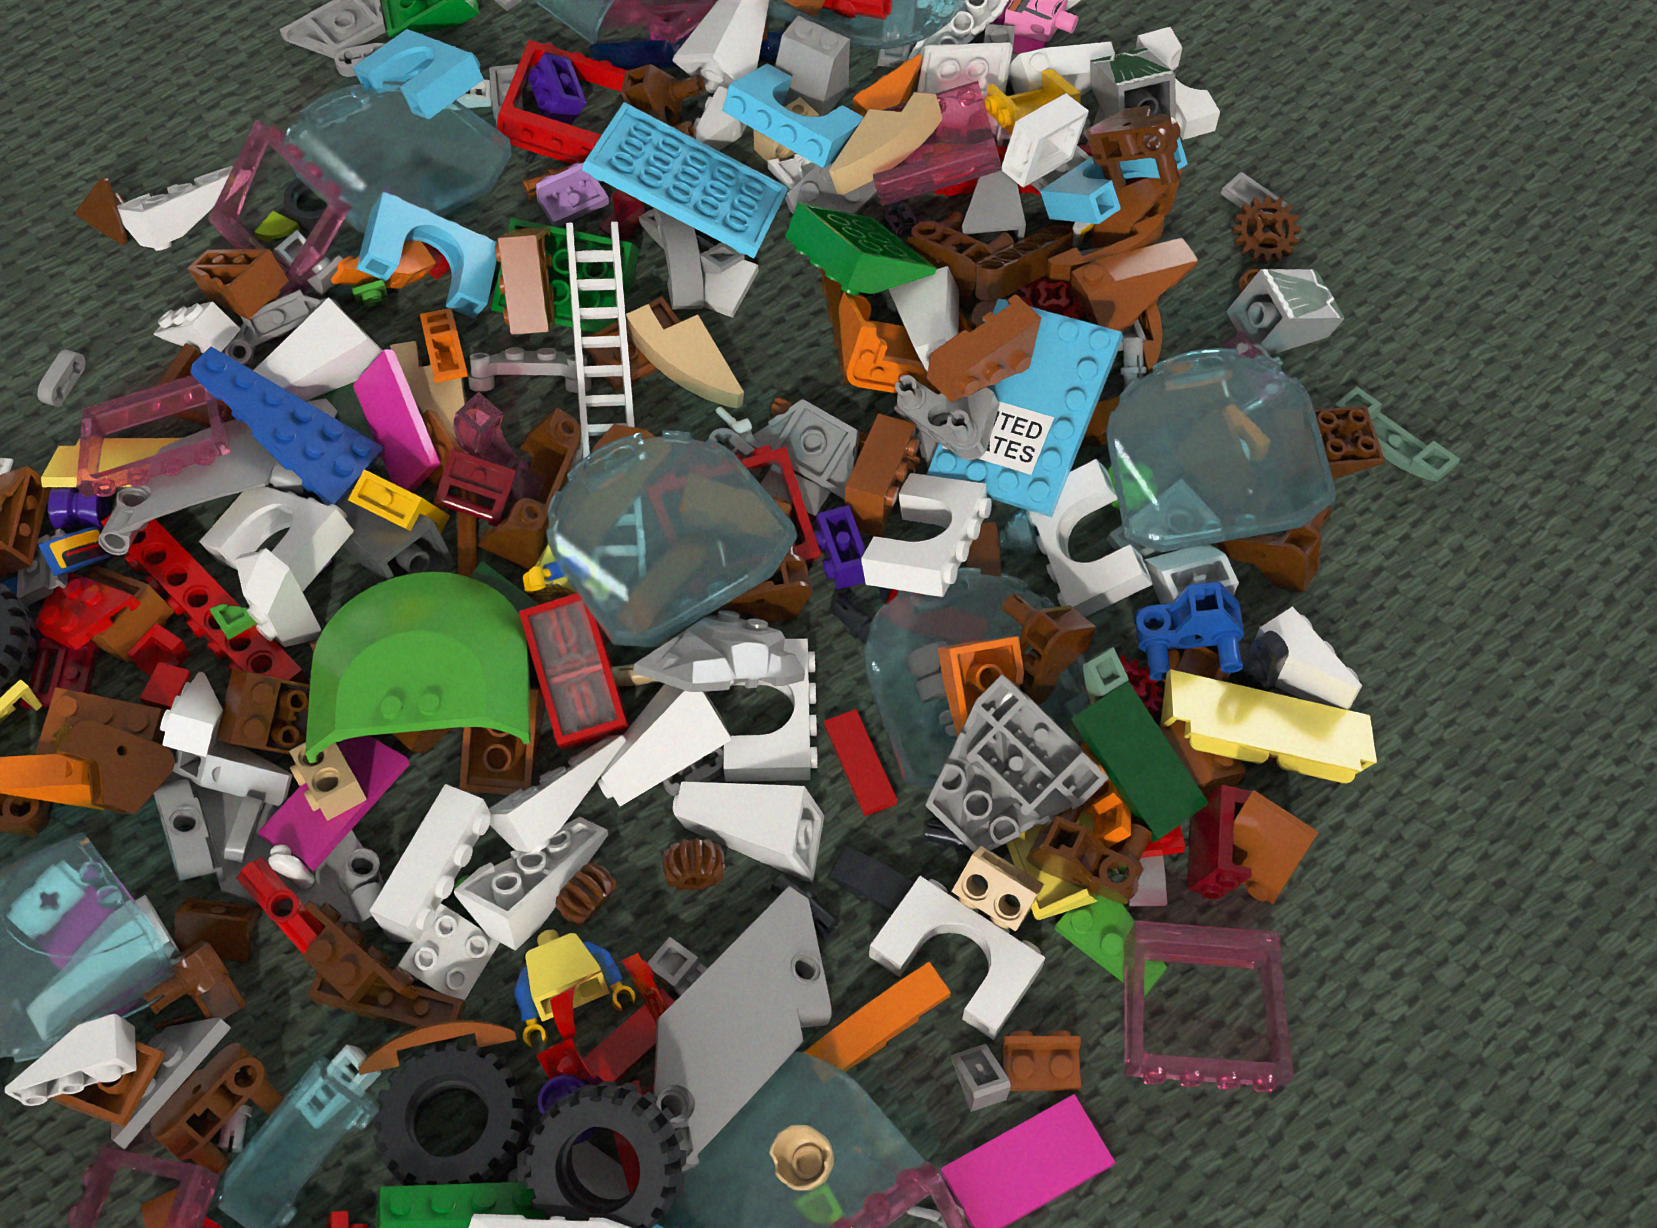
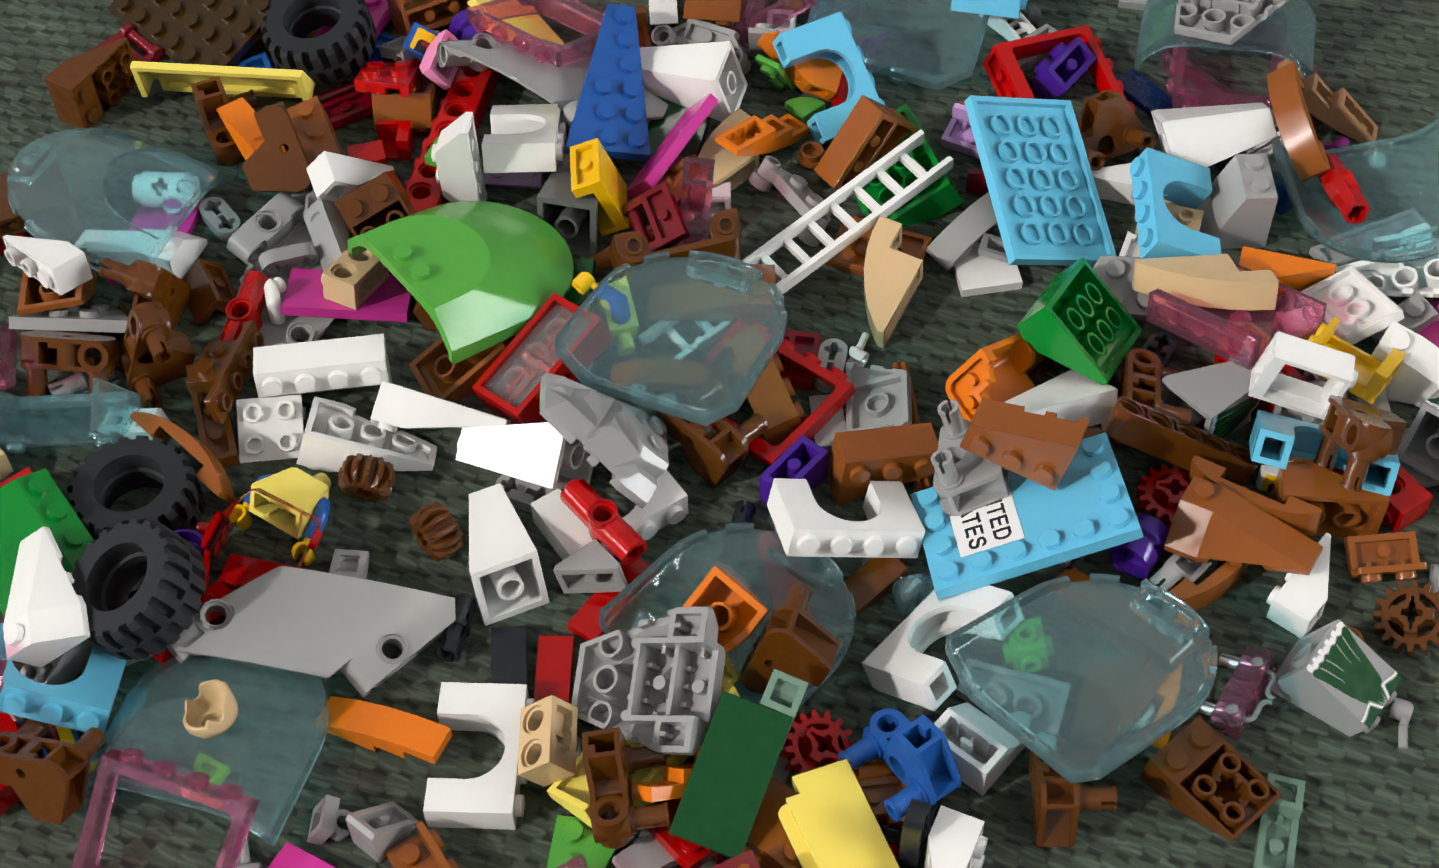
camera: 60 degrees right, 10 degrees down
(97, 560) = (429, 65): none -> bright pink slope
(130, 859) = (216, 222): none -> light grey beam
(273, 1014) = (153, 352): none -> reddish brown piece
(420, 299) = (804, 107): none -> bright green tile
(484, 327) = (810, 154): none -> dark orange plate
(822, 715) = (614, 531): none -> red piece
(832, 757) = (590, 571): none -> light grey slope
(911, 854) = (554, 667): none -> red tile
(942, 1122) = (325, 820): none -> light grey tile
(1199, 212) = (1383, 555): none -> dark orange bracket
(1204, 287) = (1302, 597): none -> white slope
(1336, 290) = (1402, 711): none -> light grey hand

